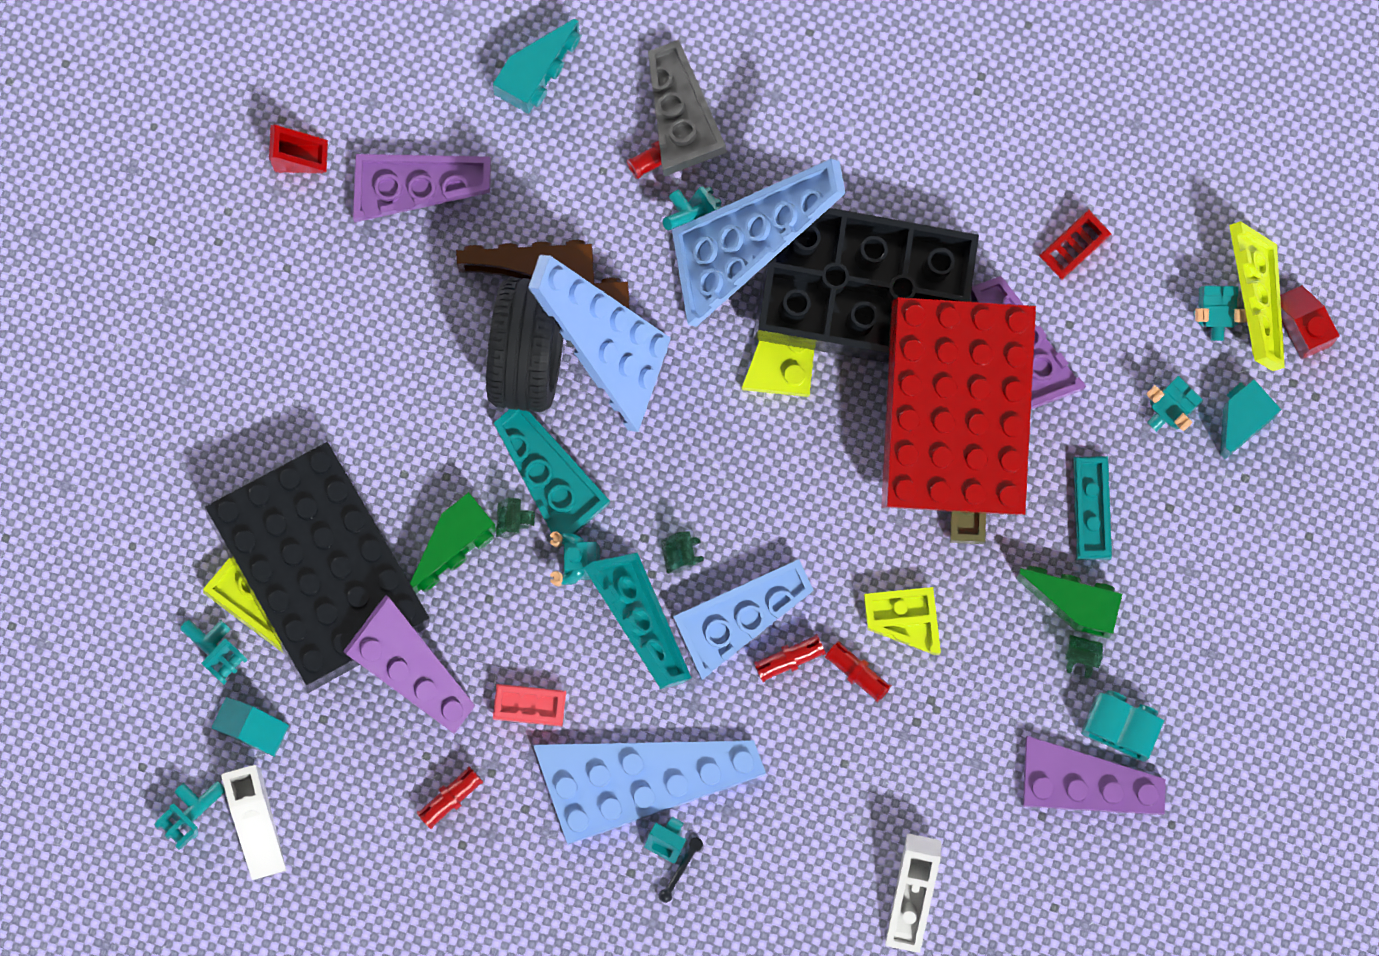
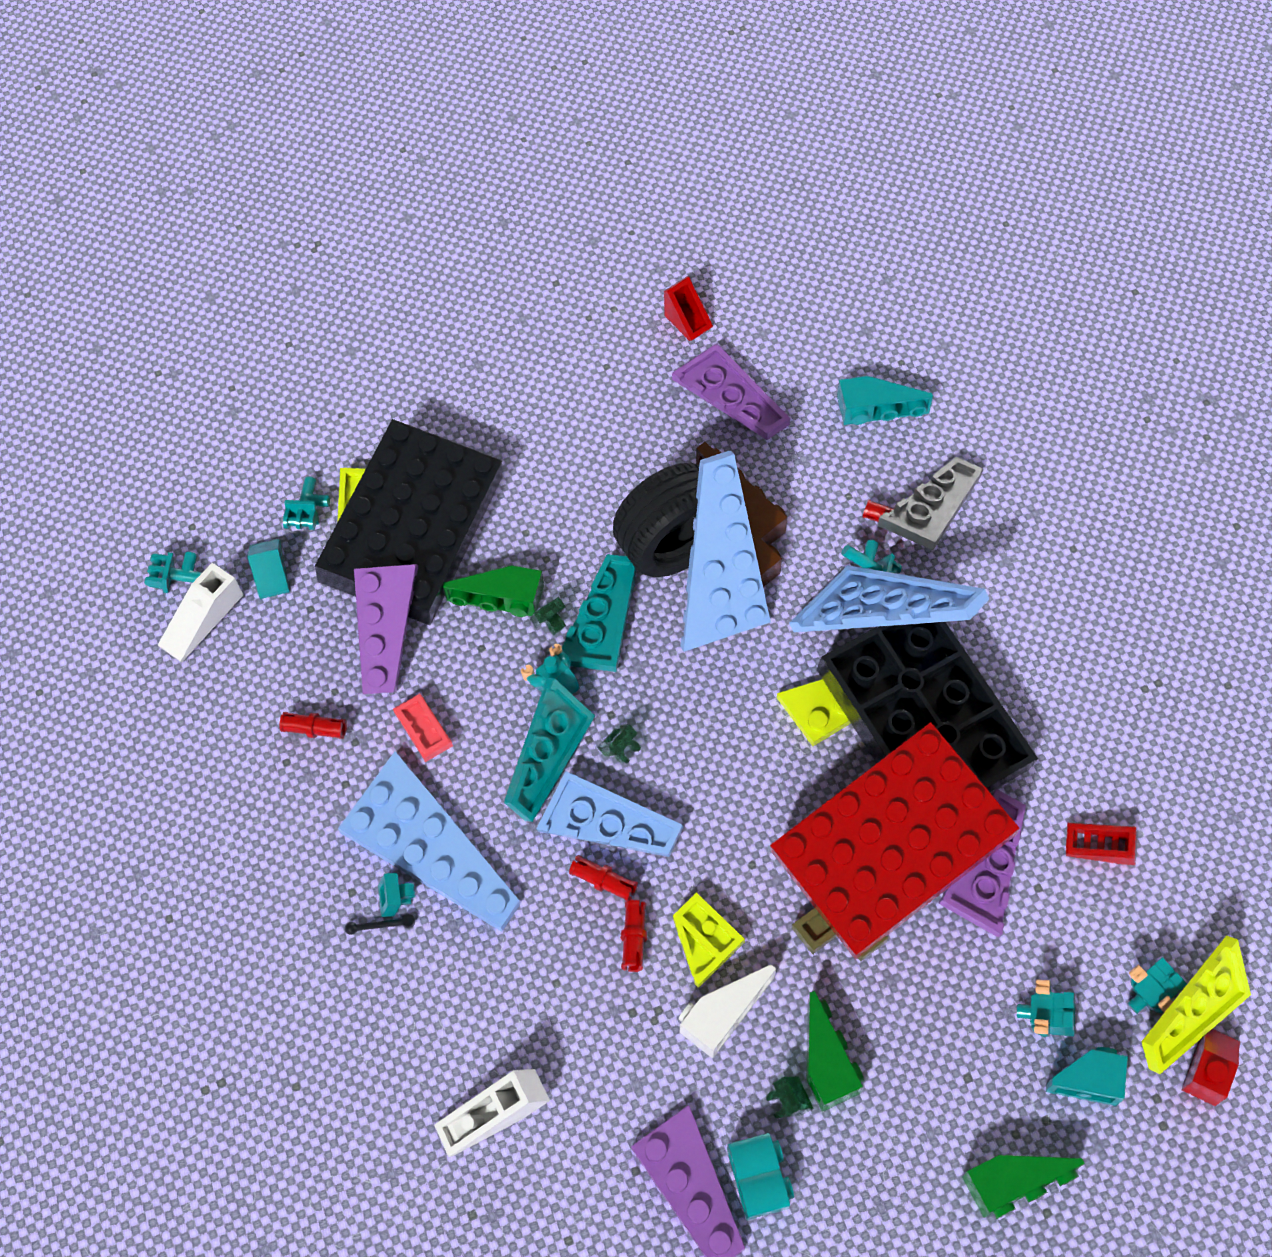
camera: 55 degrees right, 15 degrees down
(977, 656) = (720, 1012): none -> white slope
(1092, 508) = (912, 1015): teal tile -> none
(1267, 548) = (1010, 1178): none -> green slope

